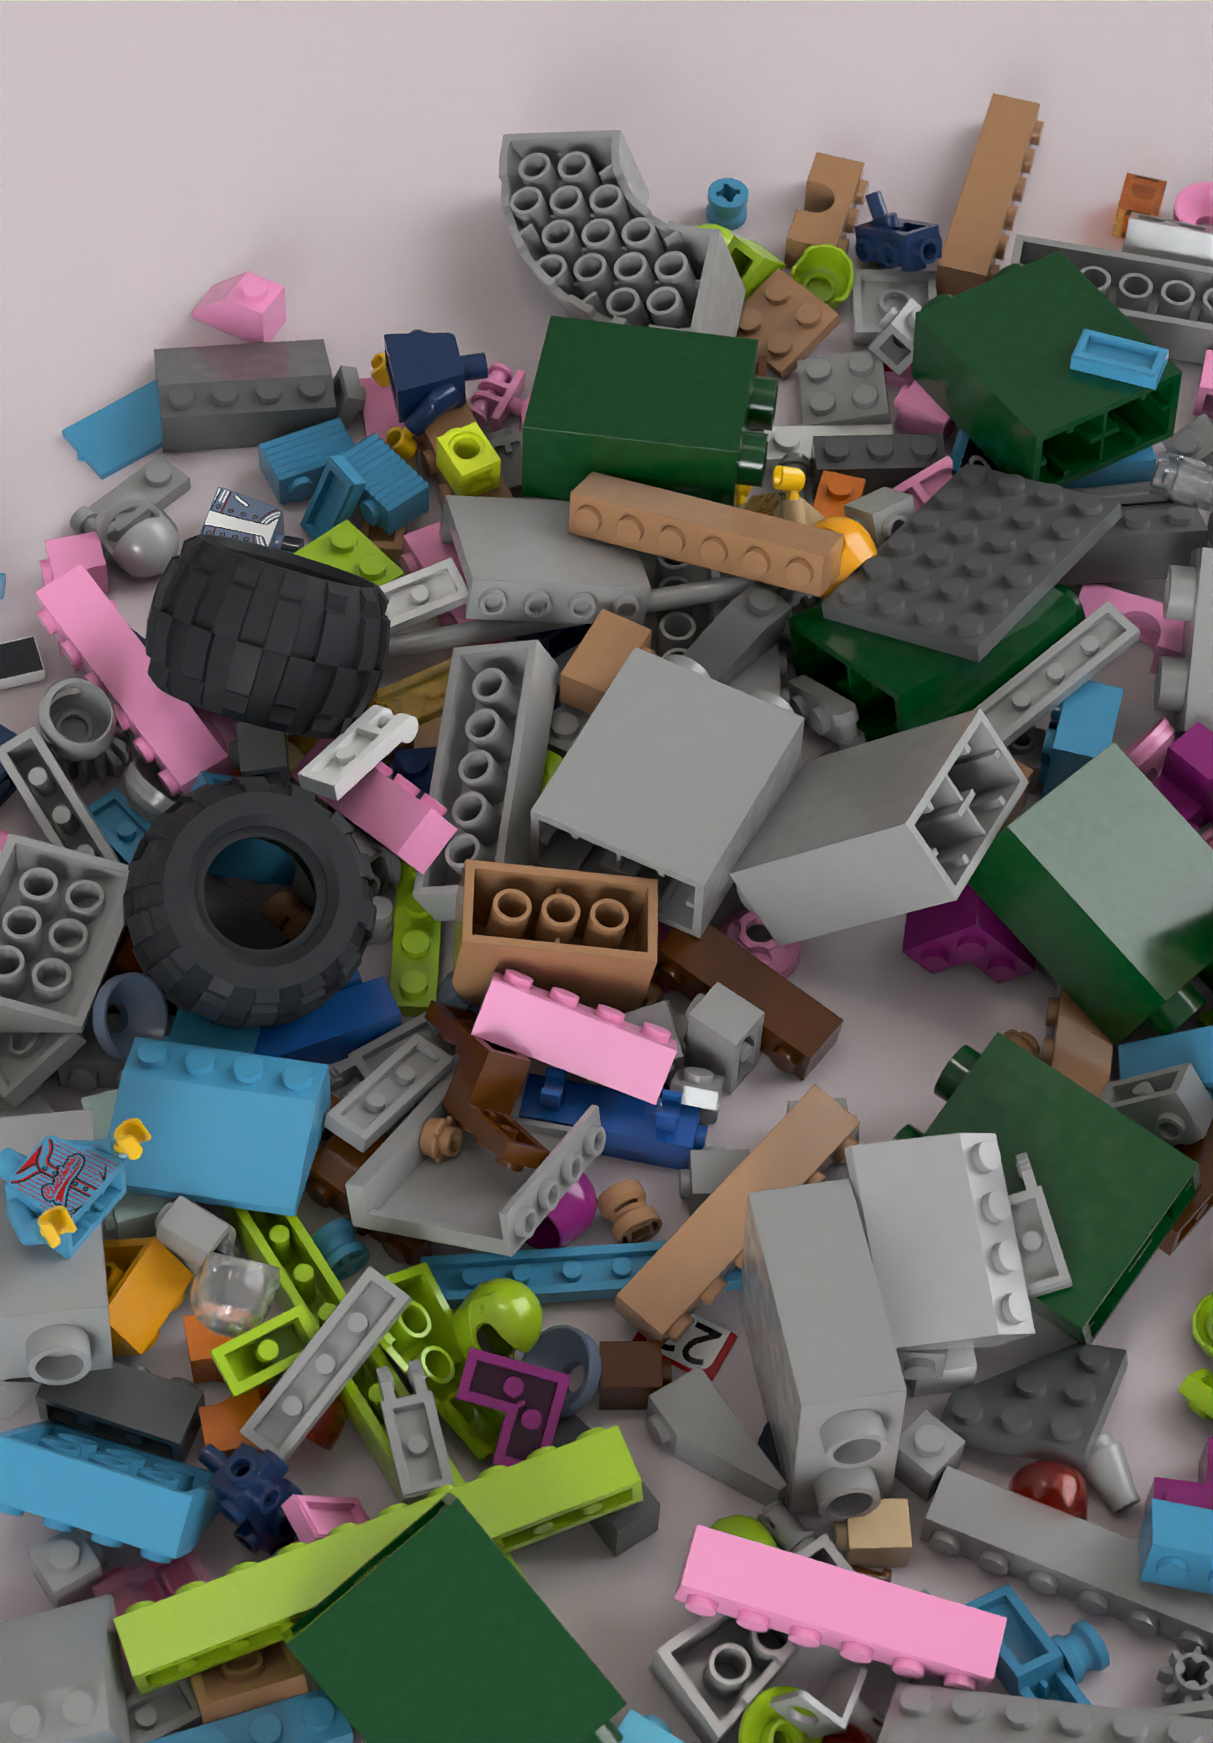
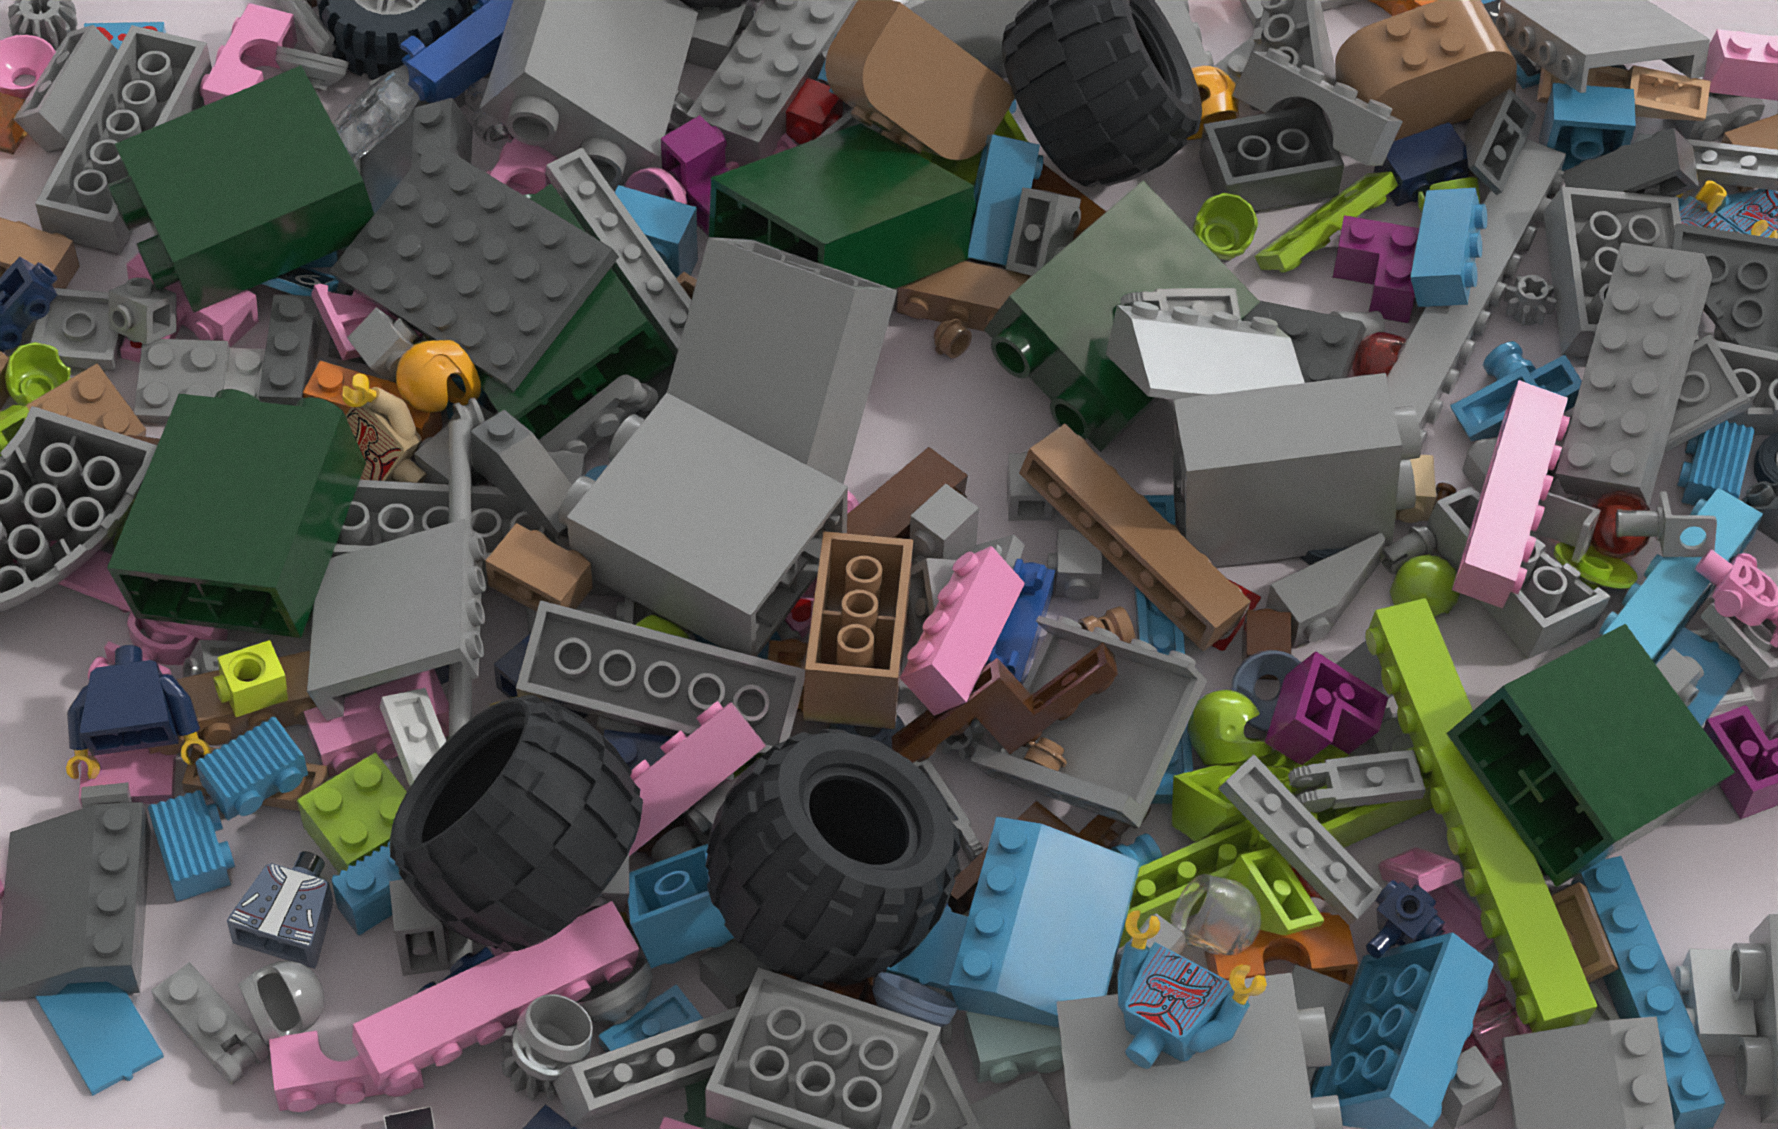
camera: 85 degrees left, 0 degrees up
(333, 497) = (267, 815): dark azure tile -> none
(357, 751) = (661, 782): white plate -> none
(389, 1092) = (990, 790): light grey plate -> none
(705, 533) = (410, 467): medium nougat brick -> none
(1119, 359) = (279, 106): dark azure tile -> none

